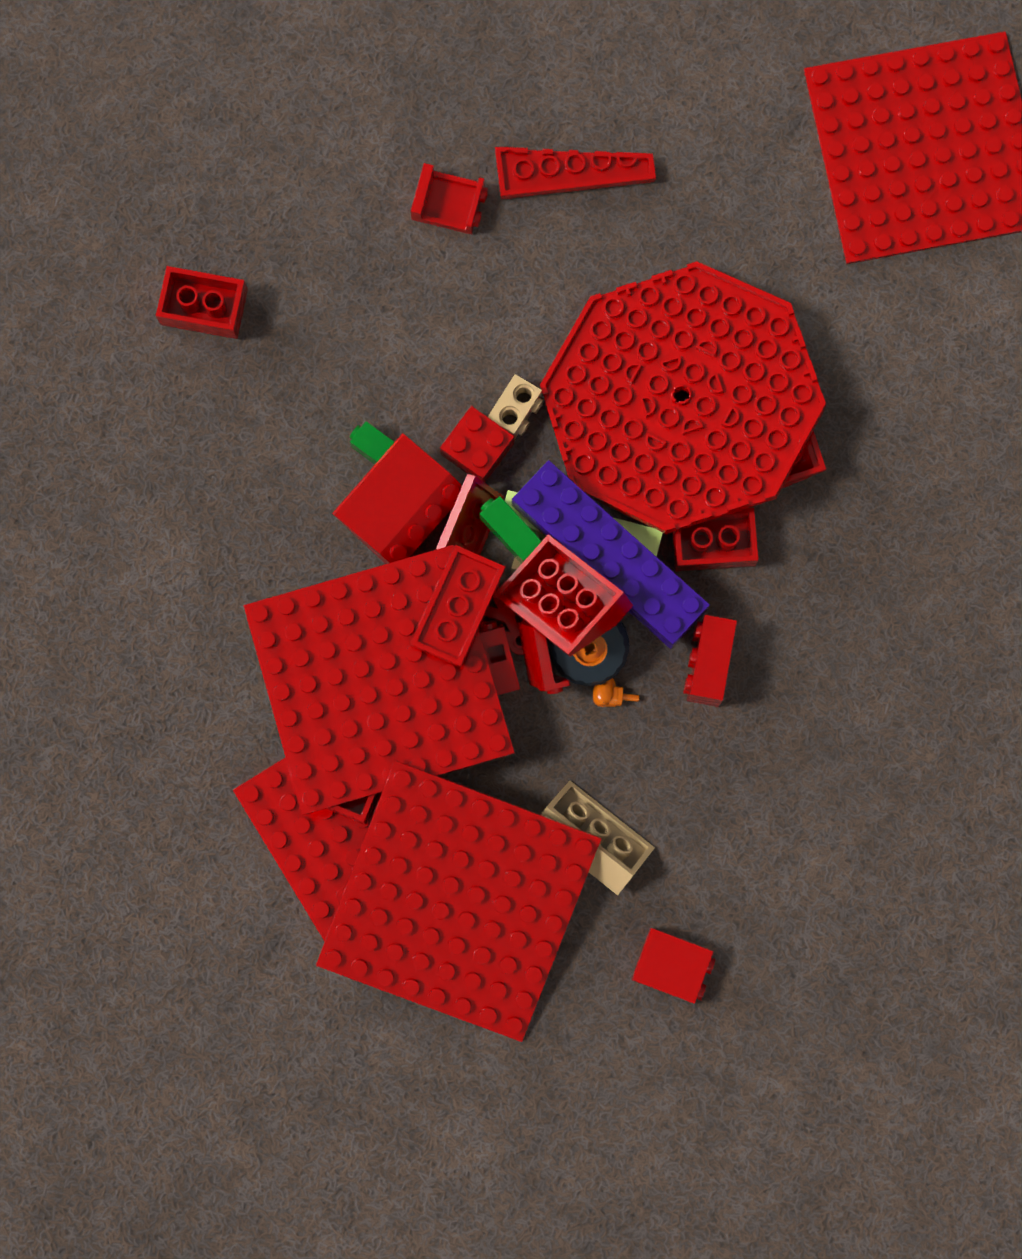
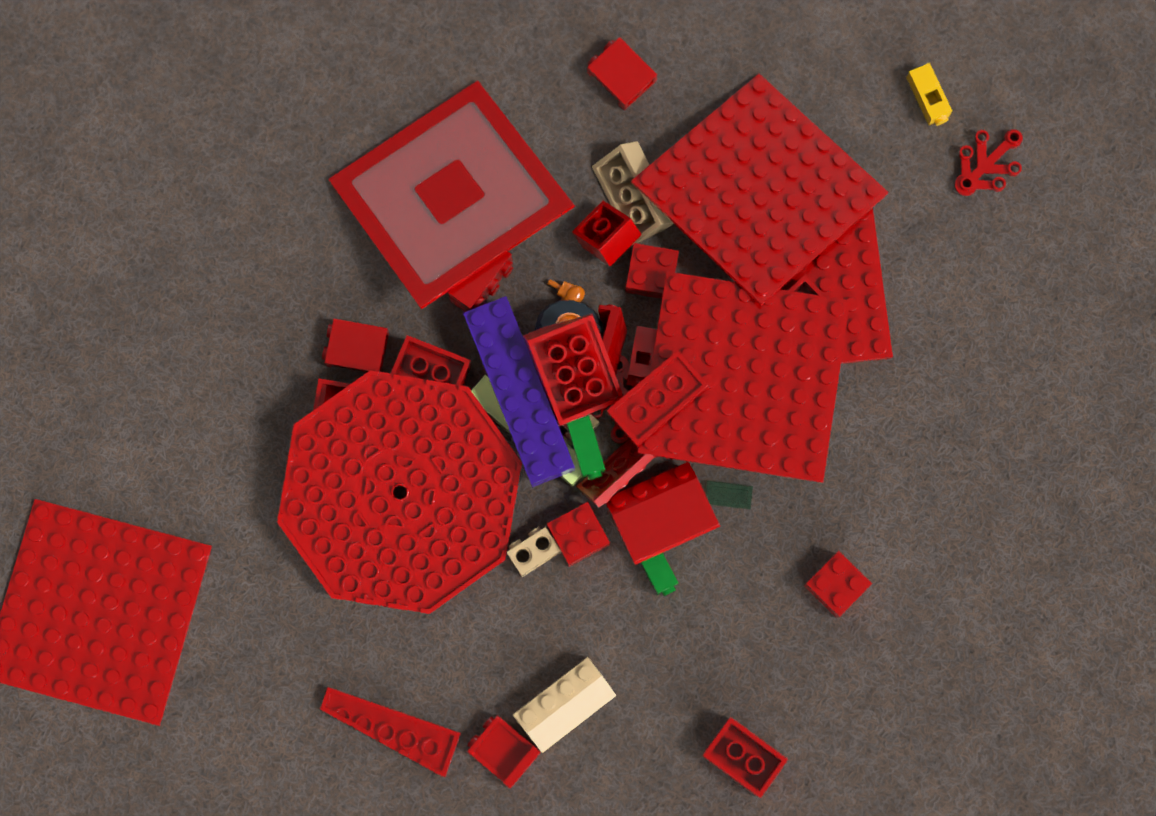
camera: 155 degrees left, 0 degrees up
(184, 520) = (838, 584): none -> red brick
(224, 1055) = (985, 165): none -> red plant
(320, 1105) = (929, 95): none -> yellow brick
(341, 562) = (729, 495): none -> clear green tile
(410, 272) = (564, 705): none -> tan slope
(534, 759) = (649, 269): none -> red brick
(601, 773) = (606, 233): none -> red brick
(789, 734) = (450, 194): none -> baseplate
(805, 528) = (355, 346): none -> red panel

